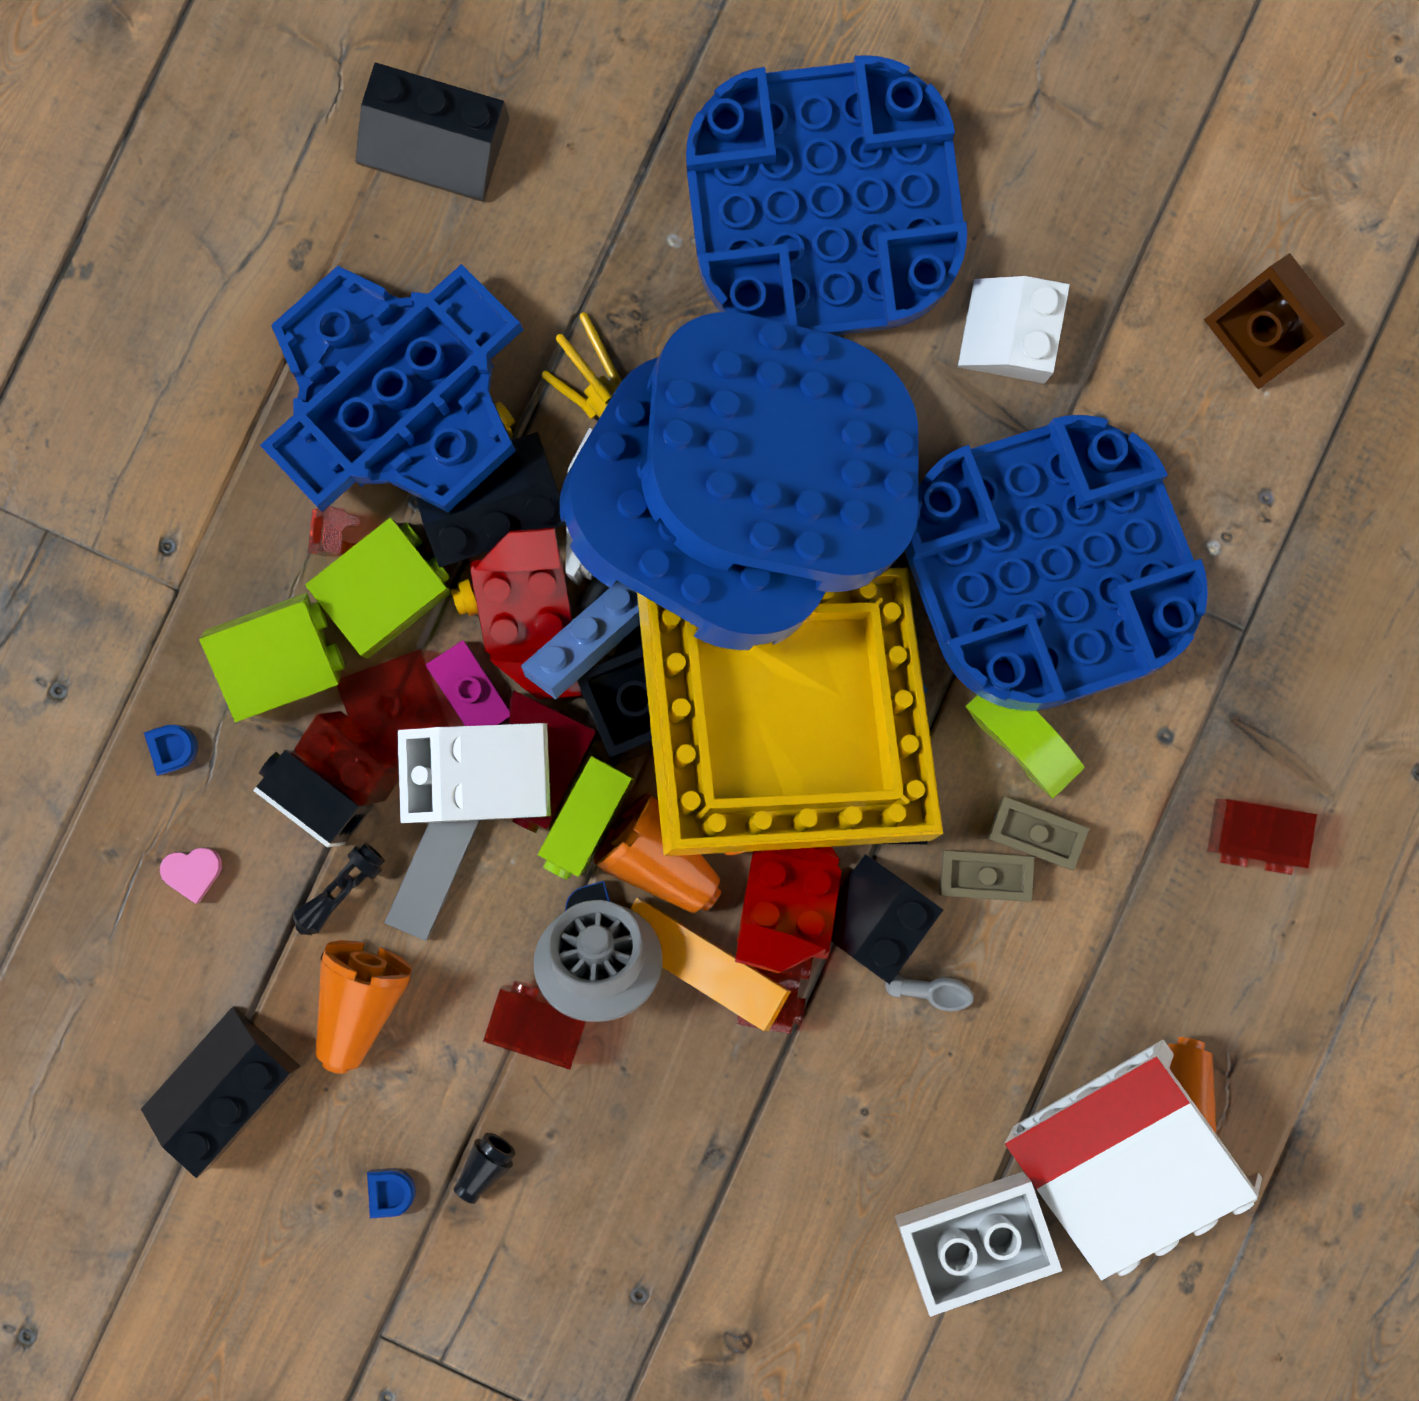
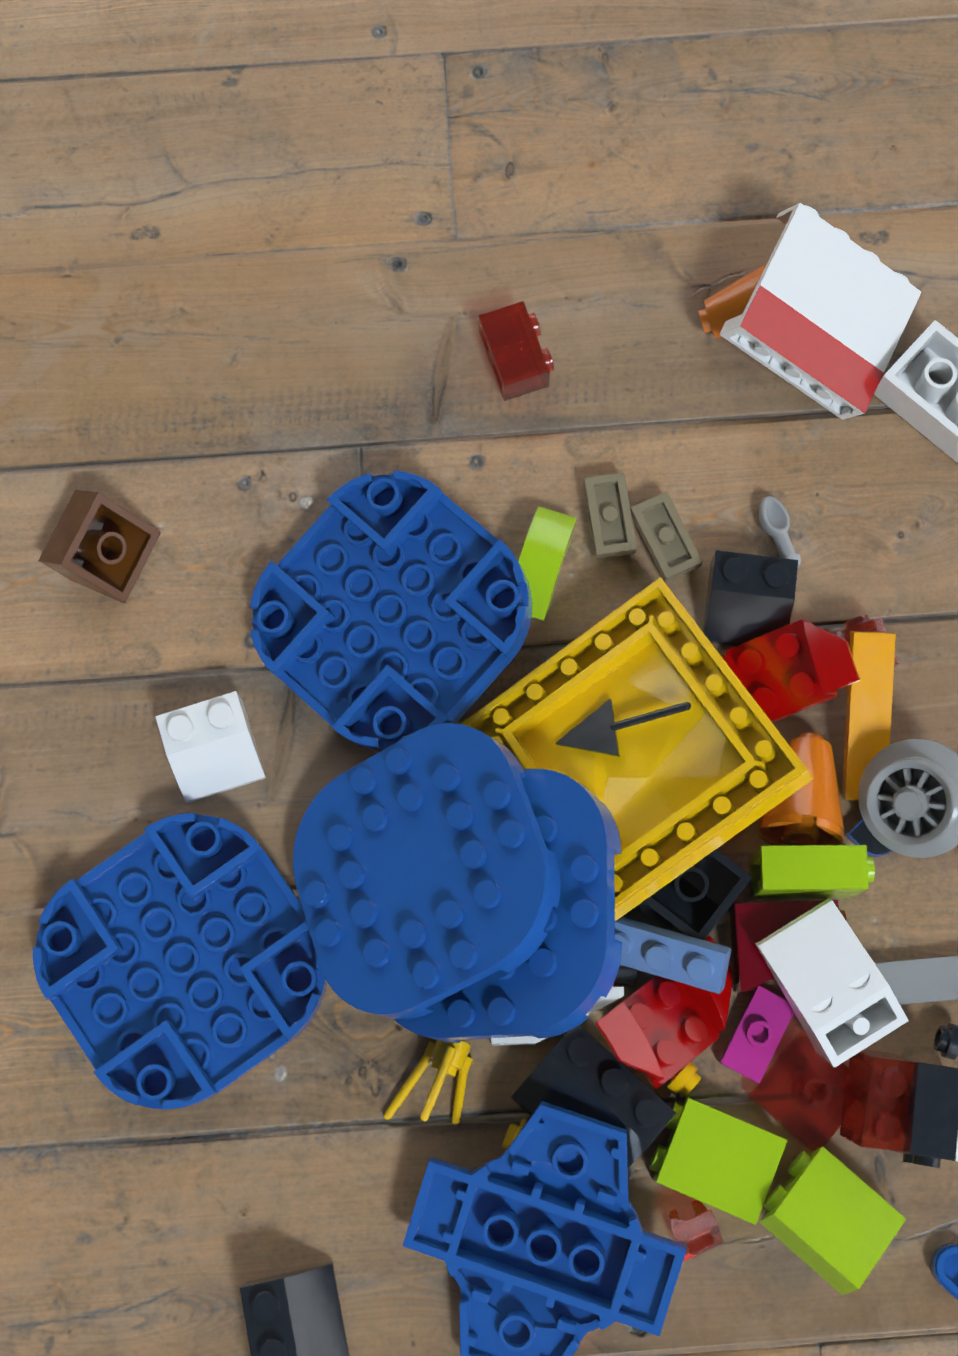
camera: 115 degrees left, 10 degrees down
(827, 693) = (598, 730): none -> black piece

